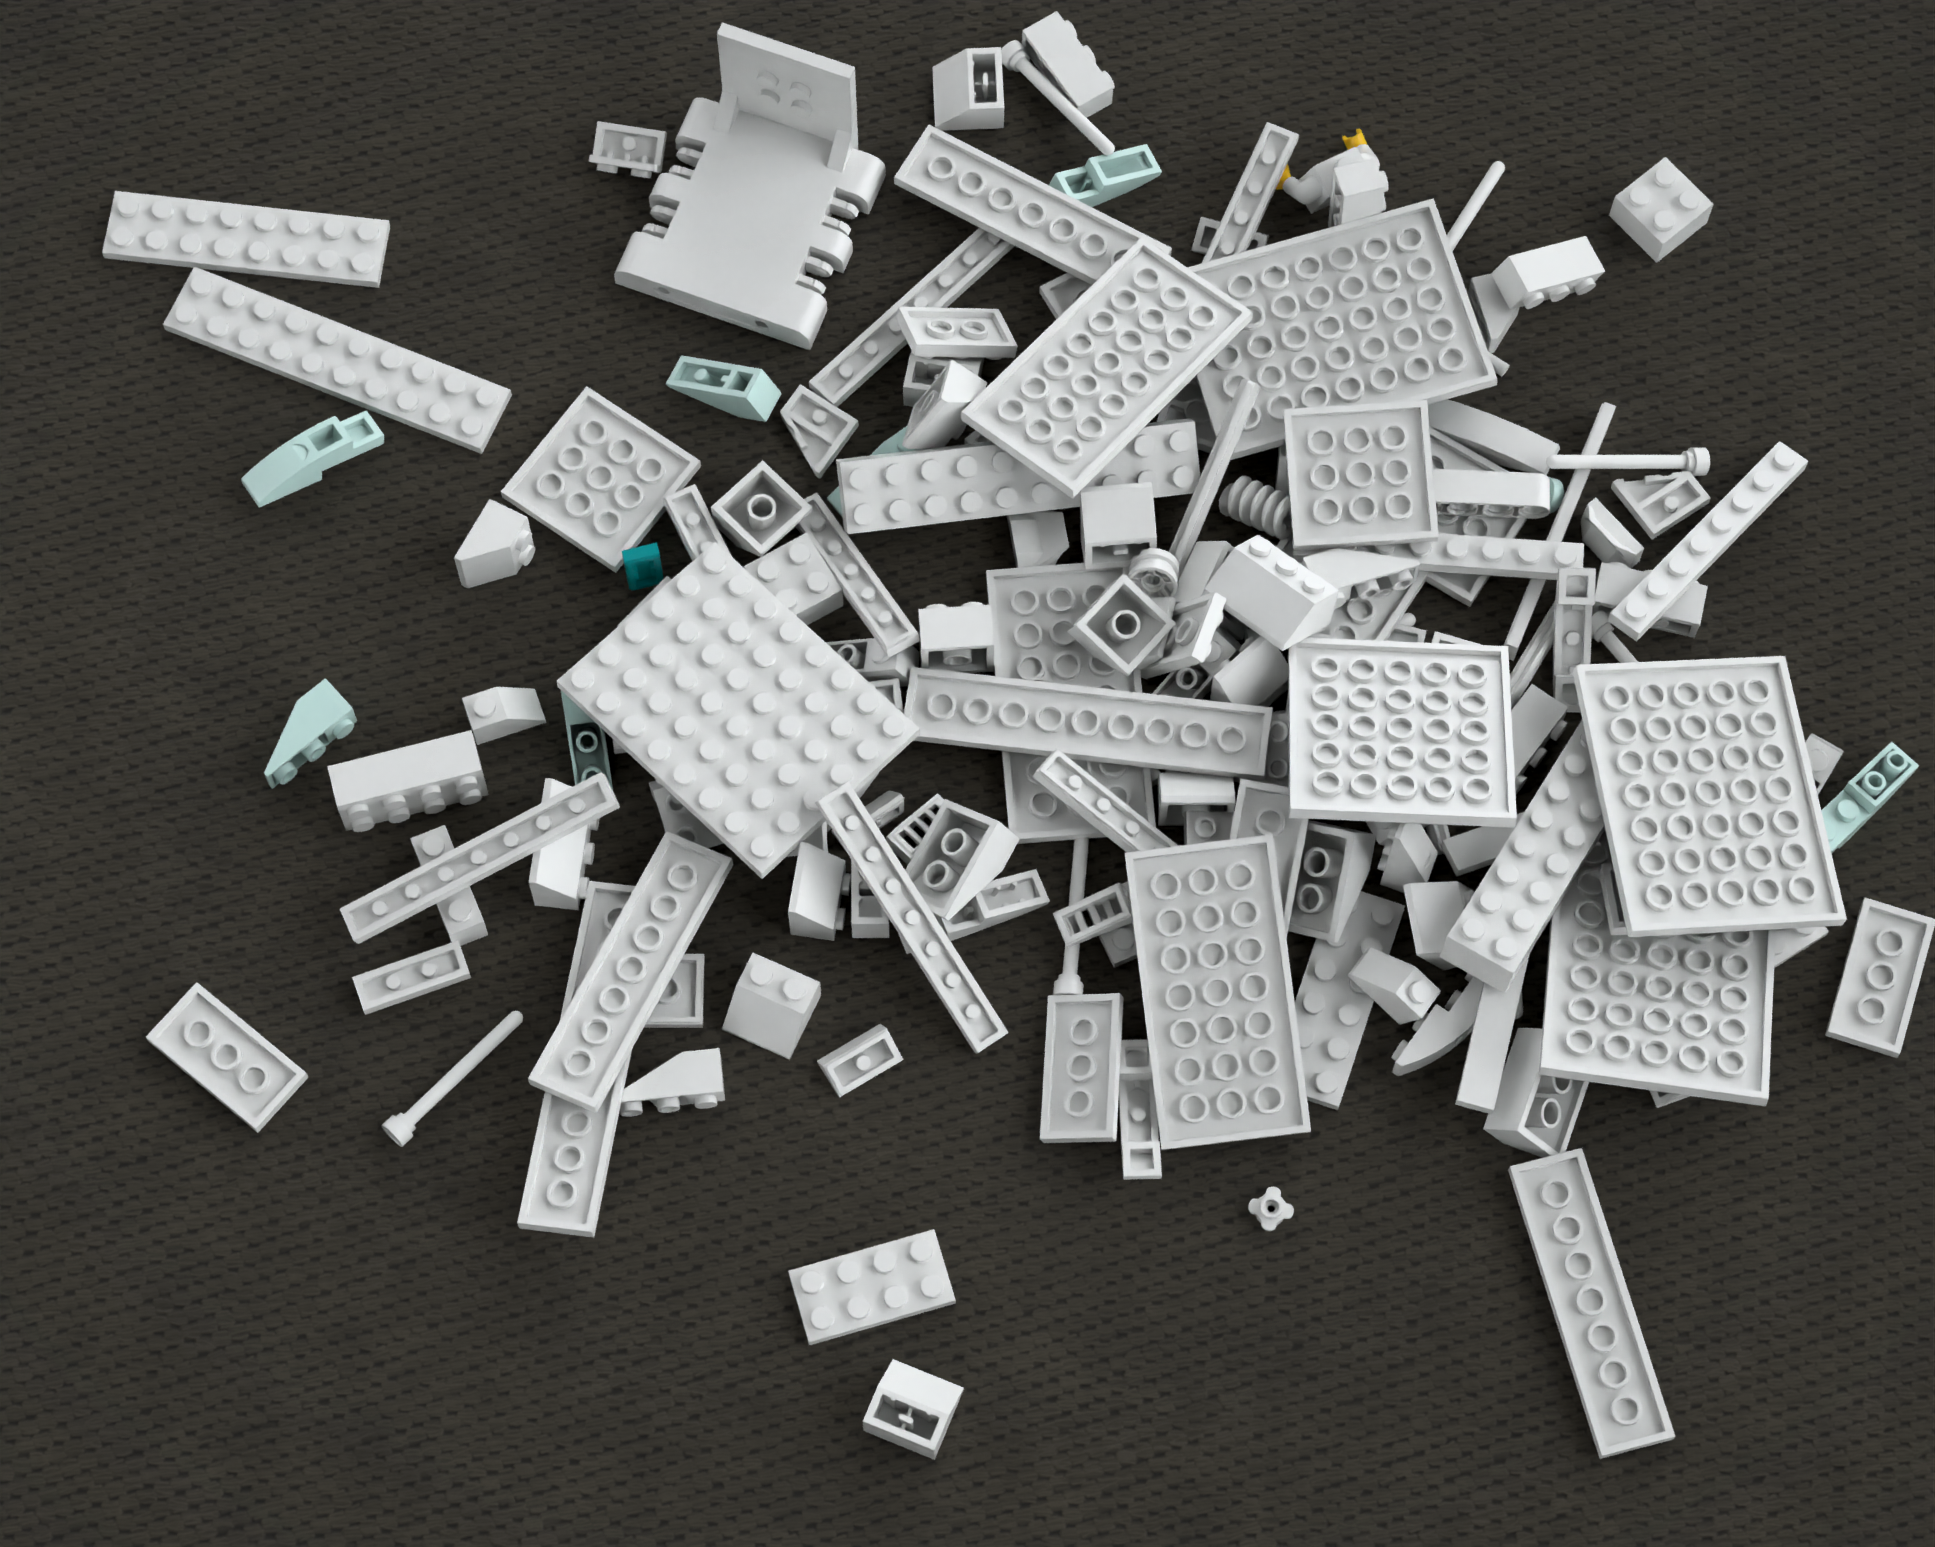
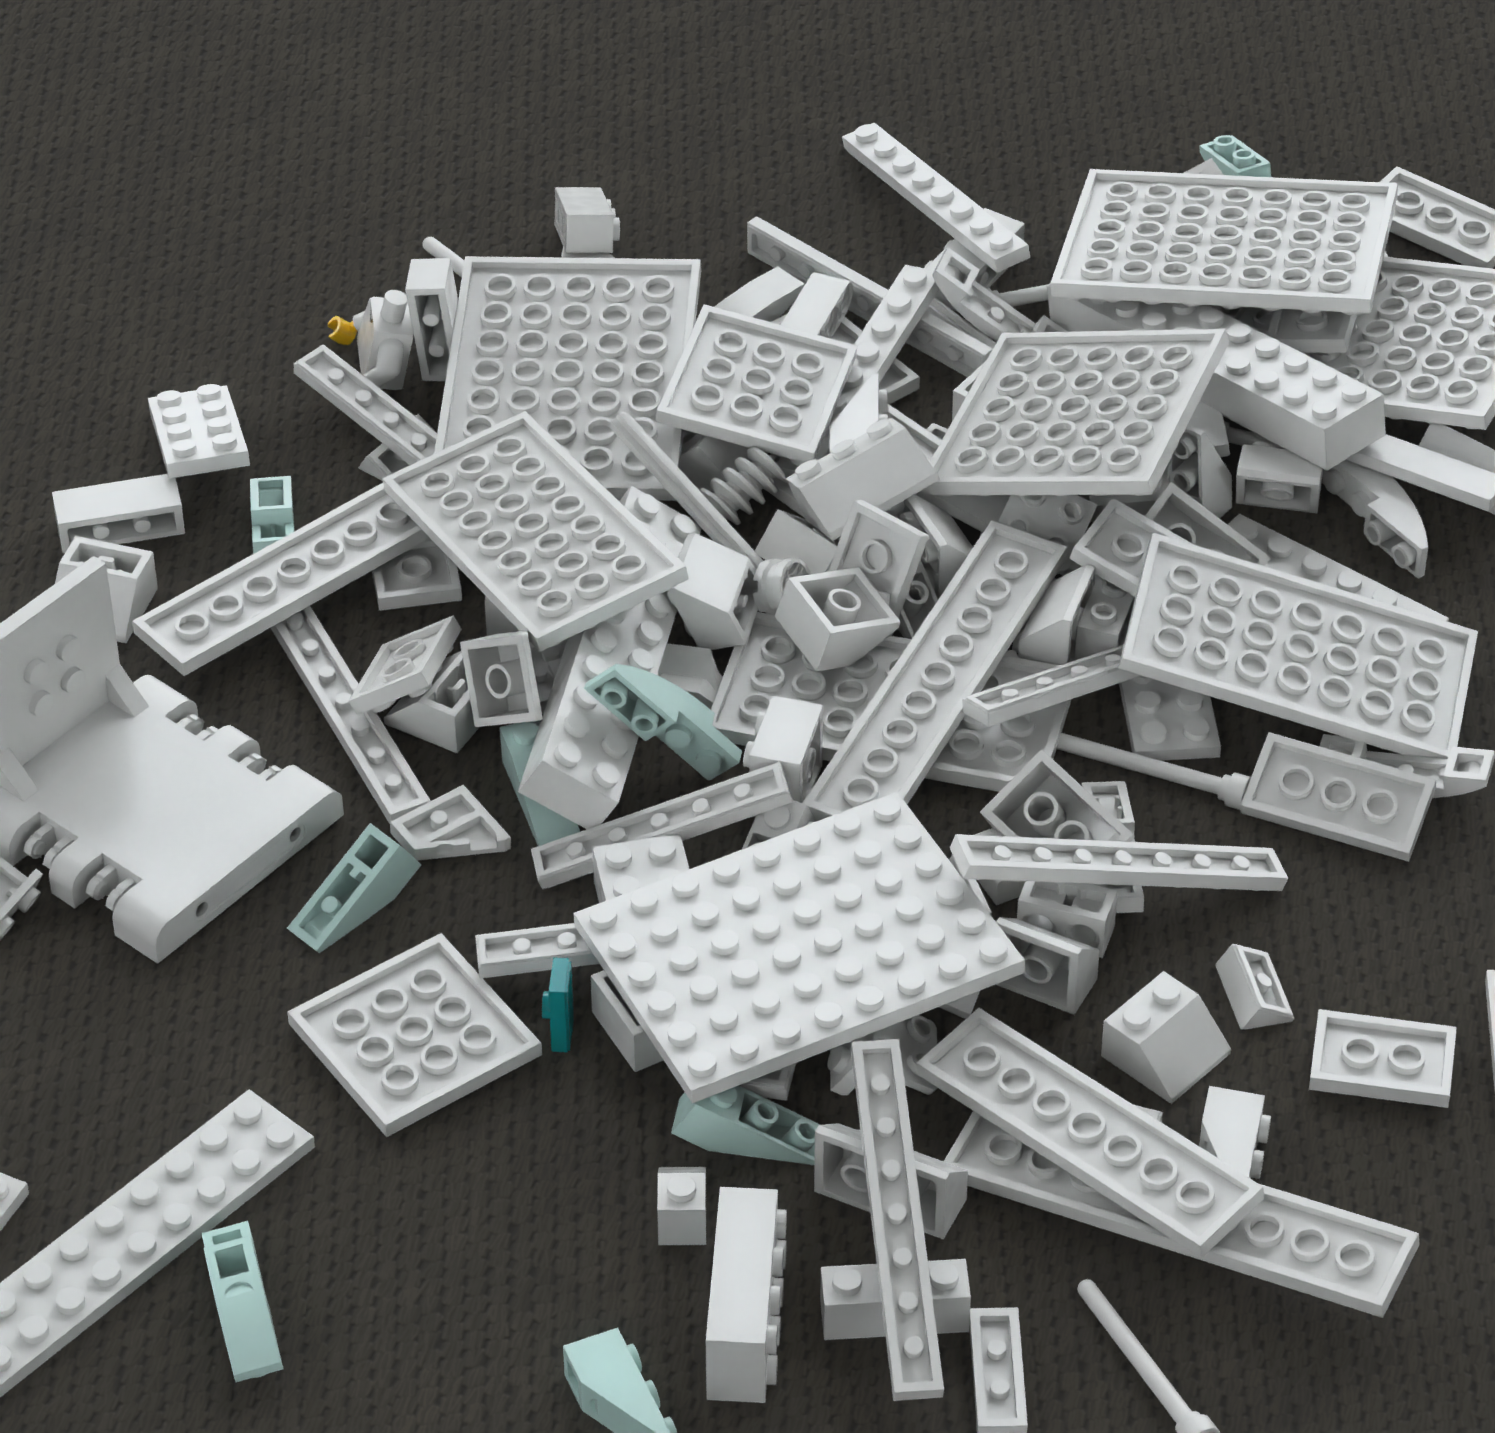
camera: 70 degrees left, 25 degrees down
(494, 546) = (459, 1133): white slope -> none
(759, 510) = (540, 882): white slope -> none
(811, 1172) = (1383, 1058): none -> white plate
(946, 531) = (664, 710): none -> light aqua slope
(1016, 58) = (176, 518): white piece -> none
(1089, 903) = (1160, 705): white slope -> none
(1176, 85) = (198, 431): none -> white plate
(1394, 985) = (1336, 529): white slope -> none
(1608, 536) = (886, 263): white slope -> none
(1661, 209) = (549, 140): white brick -> none
(1661, 500) = (867, 227): white wing -> none
(1693, 460) = (835, 196): white piece -> none

